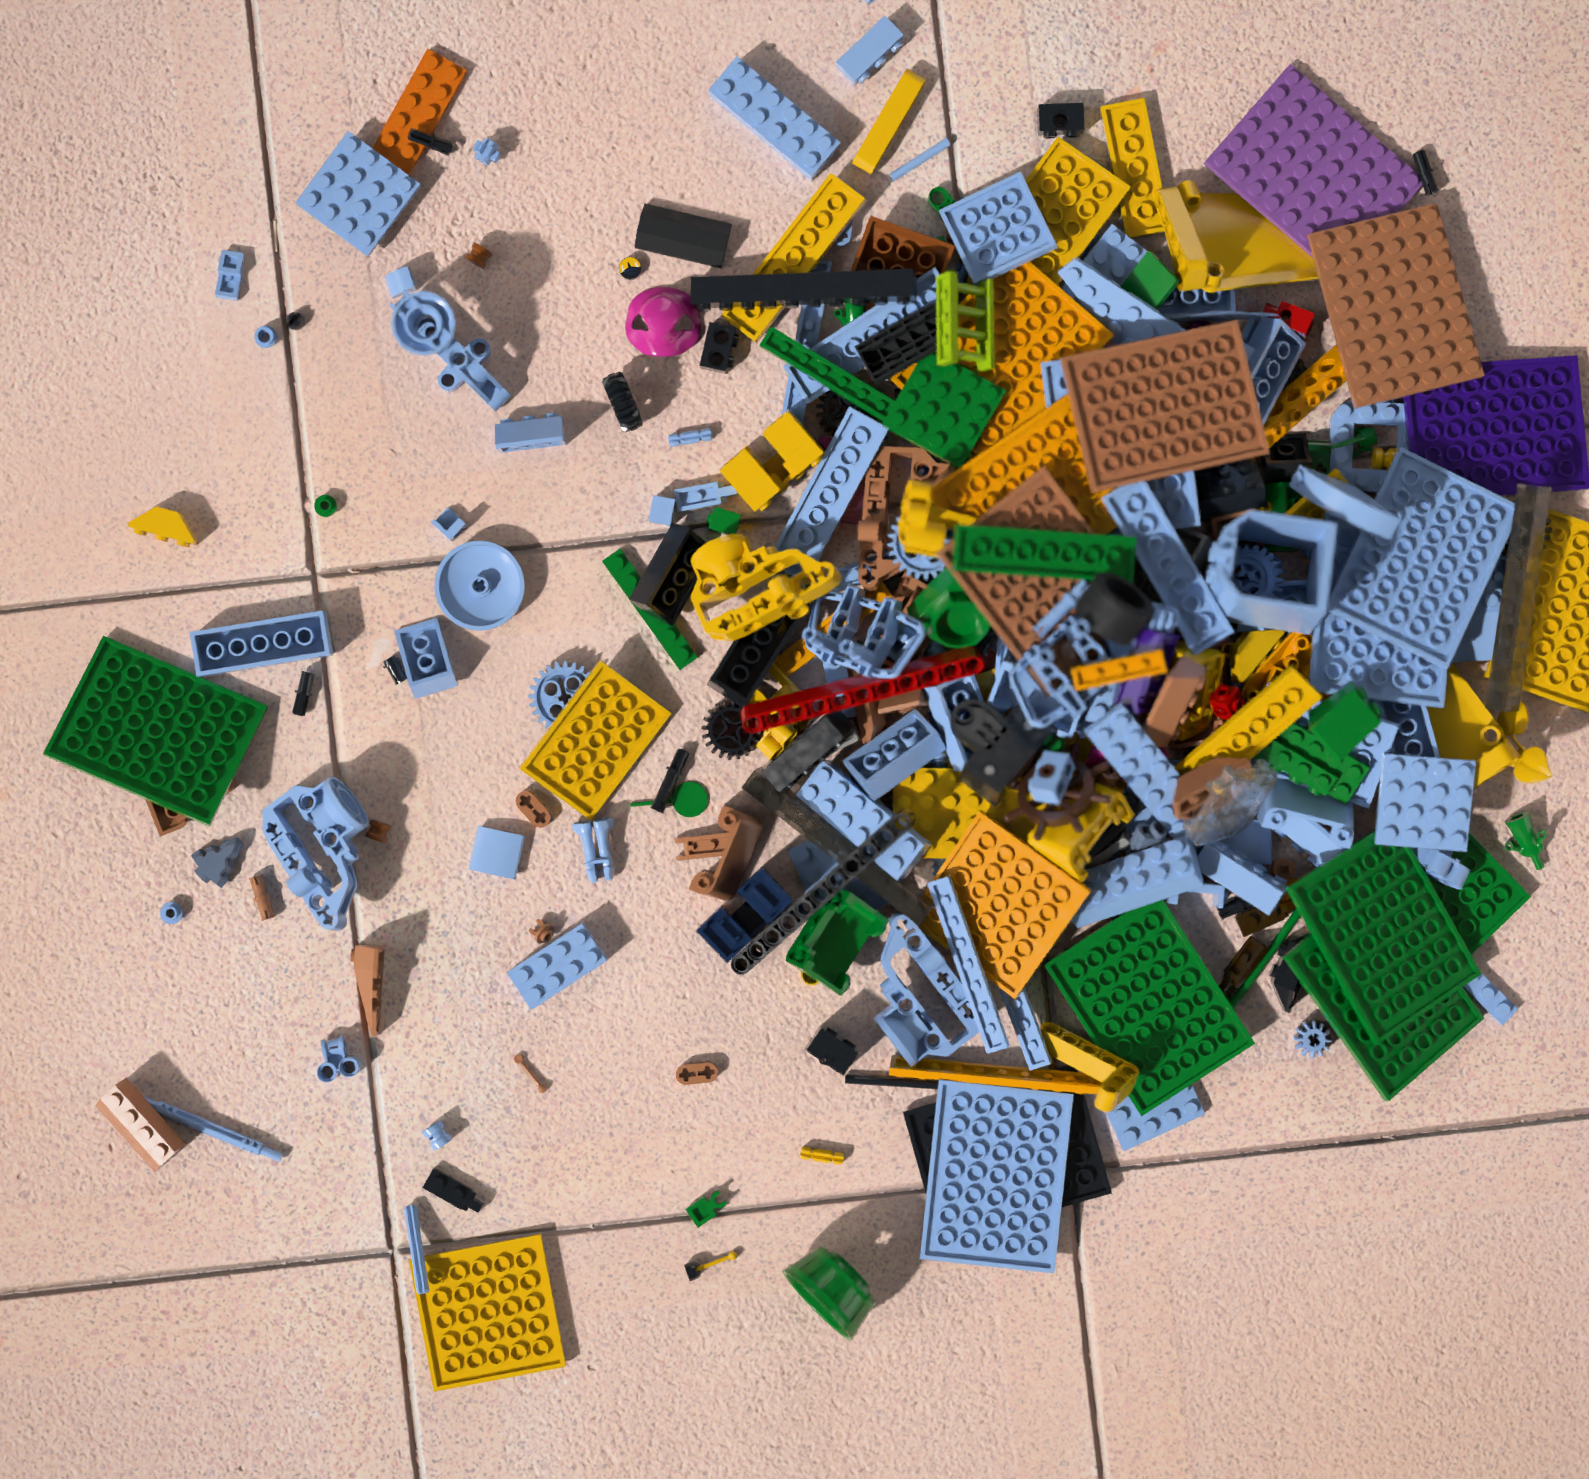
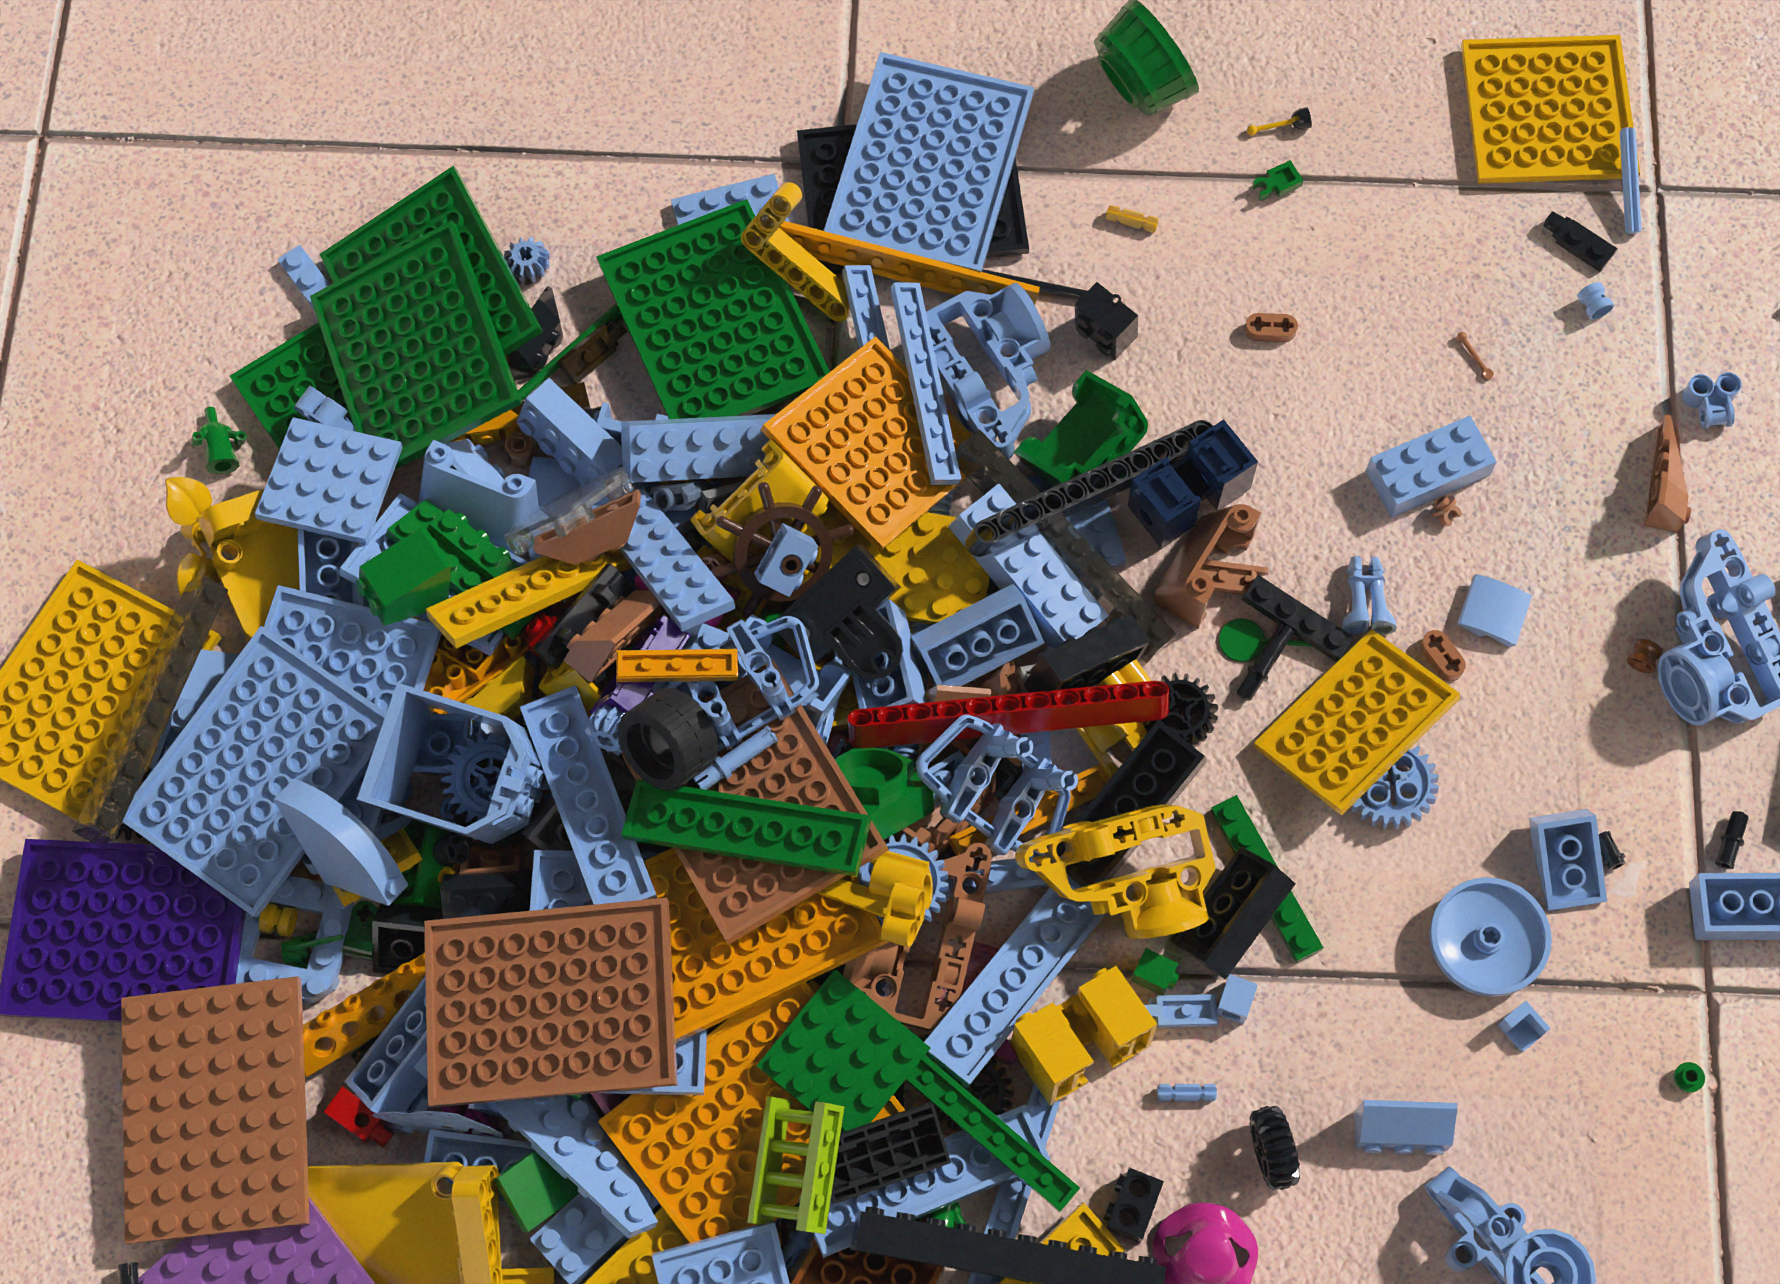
camera: 170 degrees left, 20 degrees down
(649, 820) = (1301, 619): none -> black plate
(1202, 716) = (586, 608): none -> black hinge

